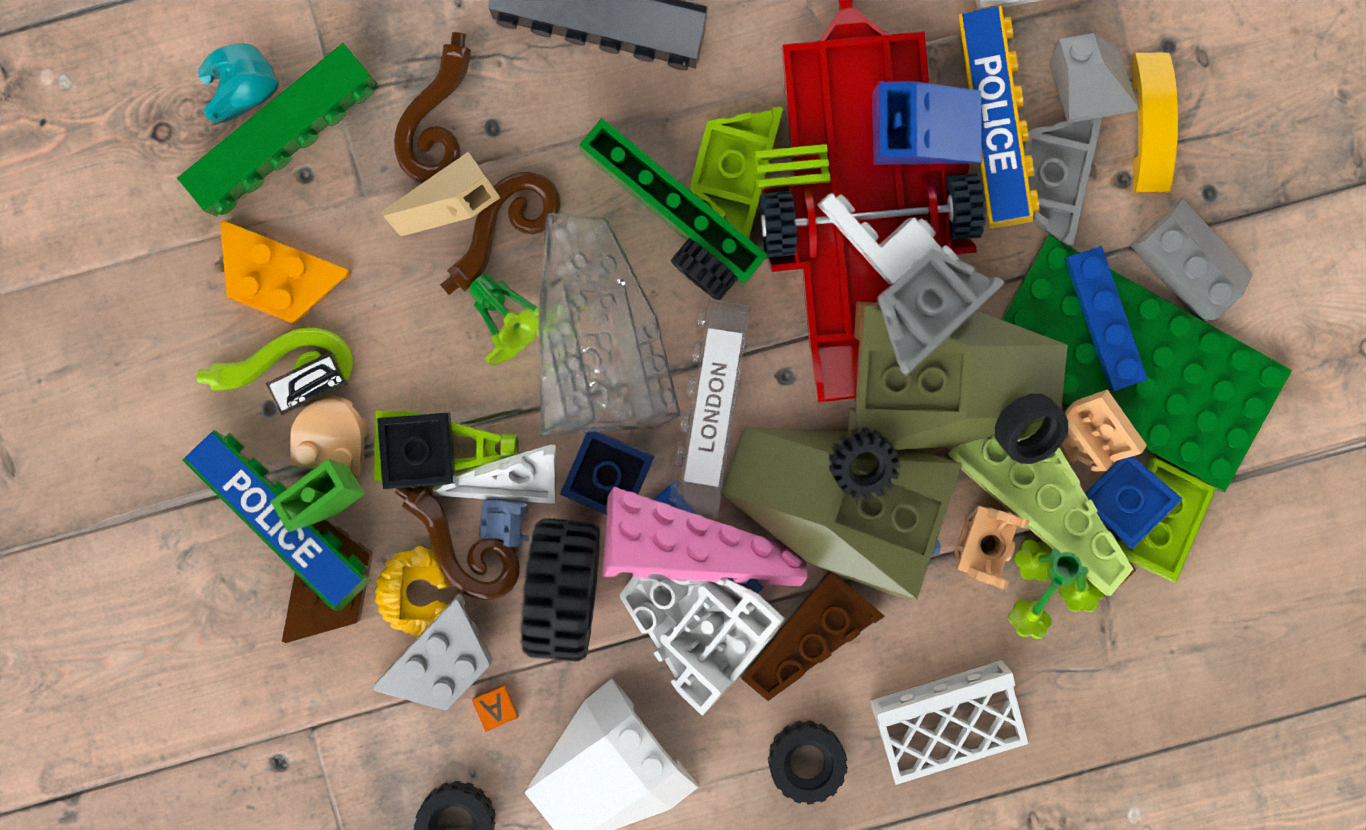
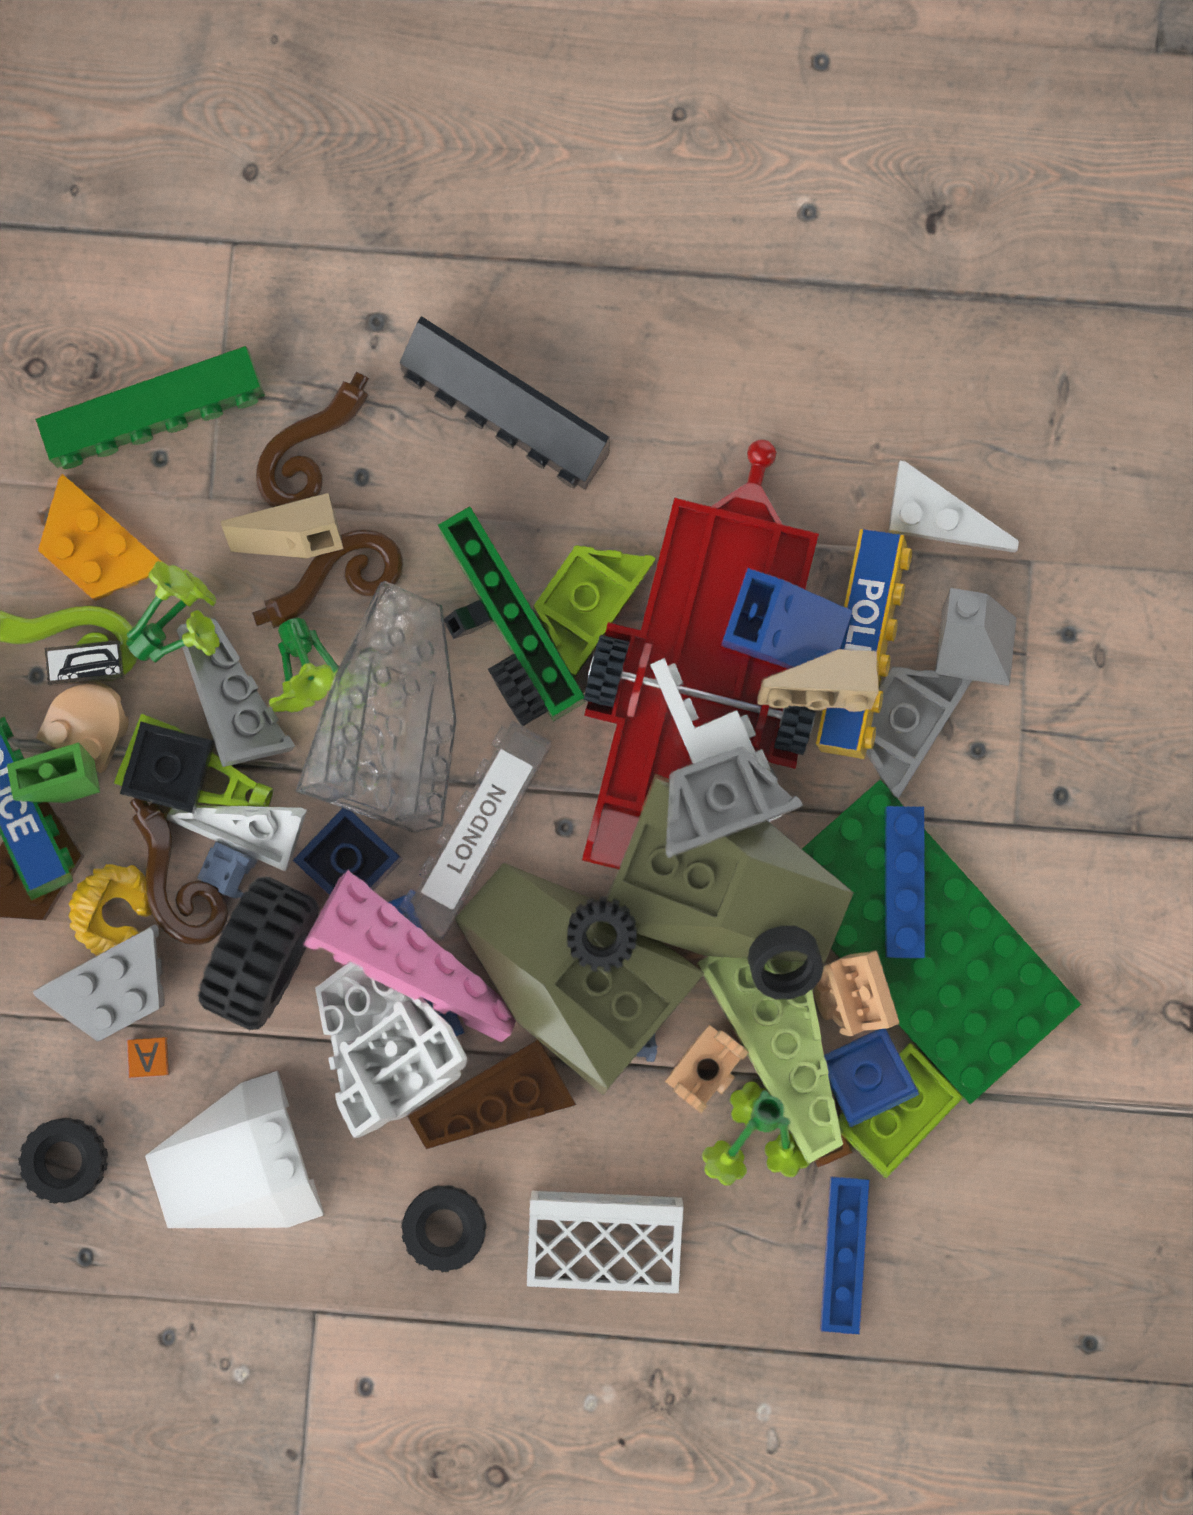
camera: 25 degrees right, 5 degrees down
(243, 84) = (137, 349): teal helmet -> none
(356, 342) = (148, 640): none -> plant
(448, 368) = (233, 708): none -> light grey wing
(634, 222) = (467, 620): none -> black piece
(822, 163) = (671, 626): lime tile -> none
(992, 159) = (830, 681): none -> tan slope
(1156, 122) = (1026, 704): yellow slope -> none
(1160, 660) = (844, 1255): none -> blue plate
(1193, 262) = (1018, 856): light grey slope -> none

